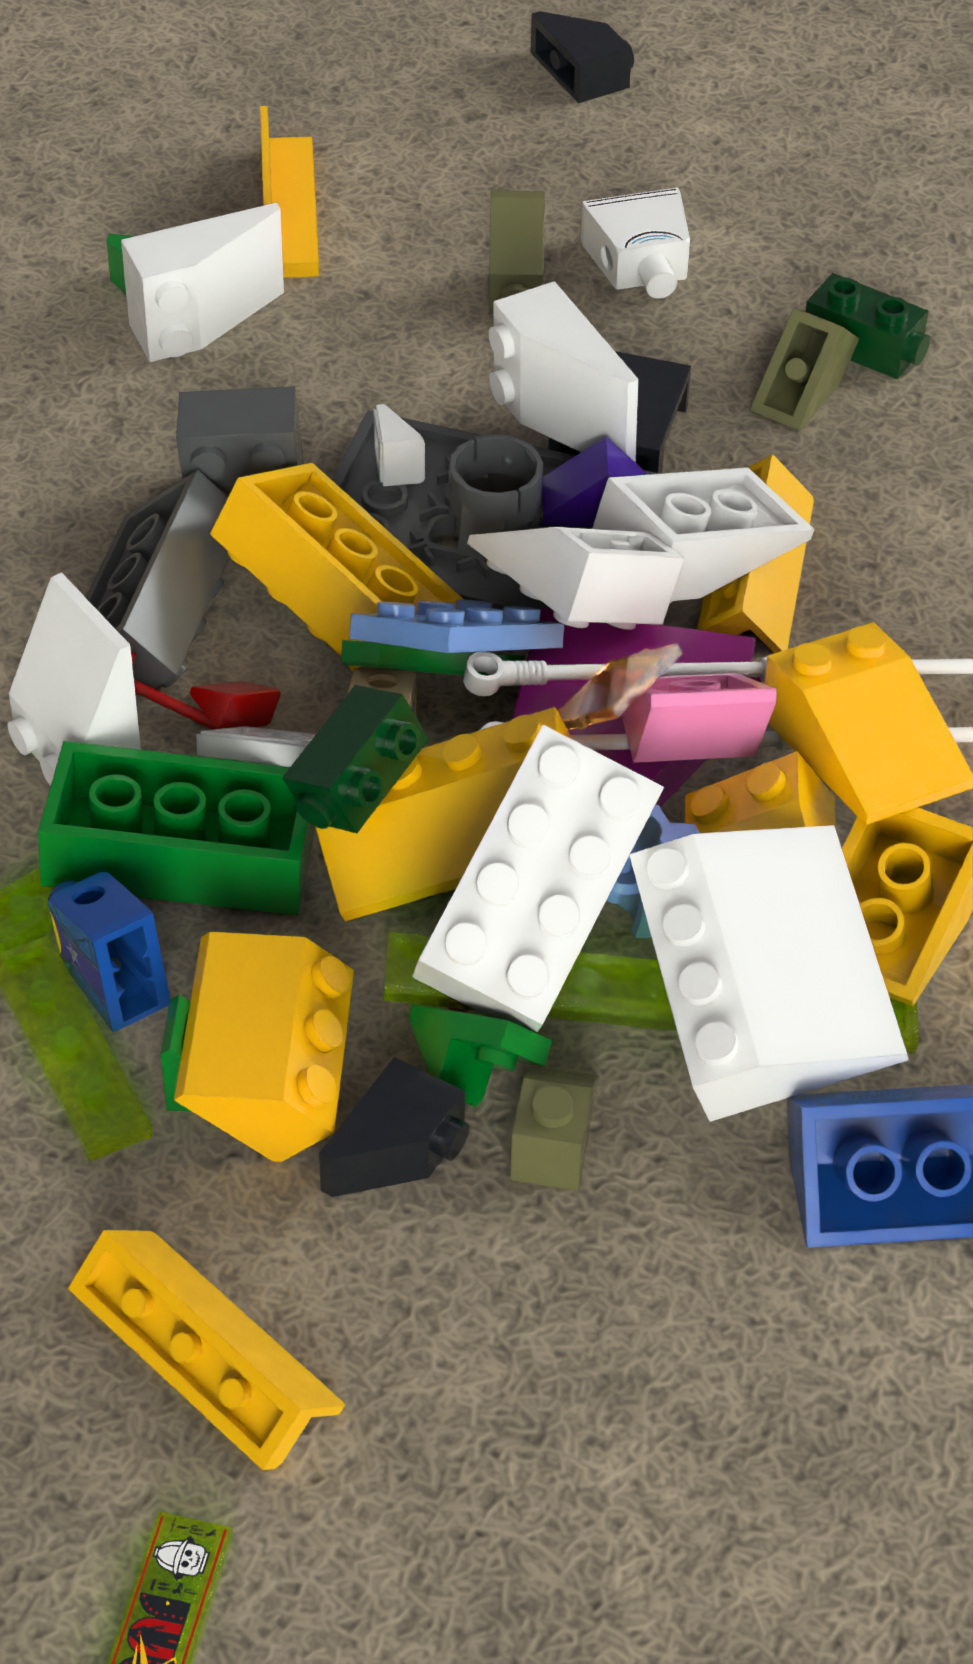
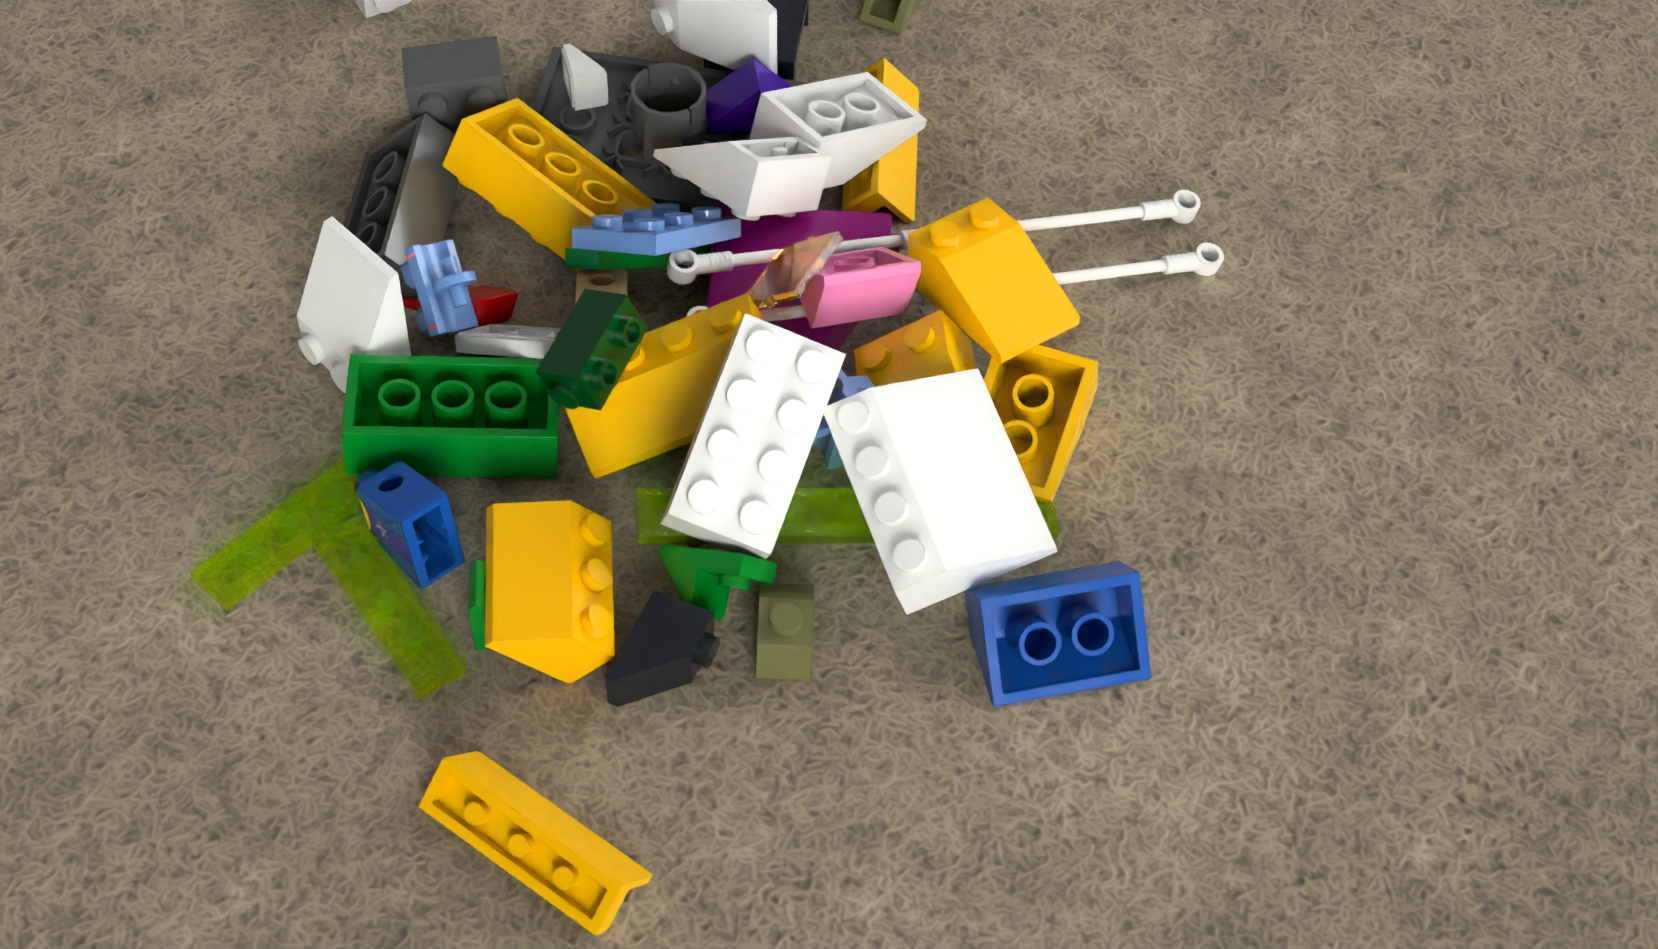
camera: 10 degrees left, 5 degrees up
(185, 675) = (440, 288): none -> medium blue hips

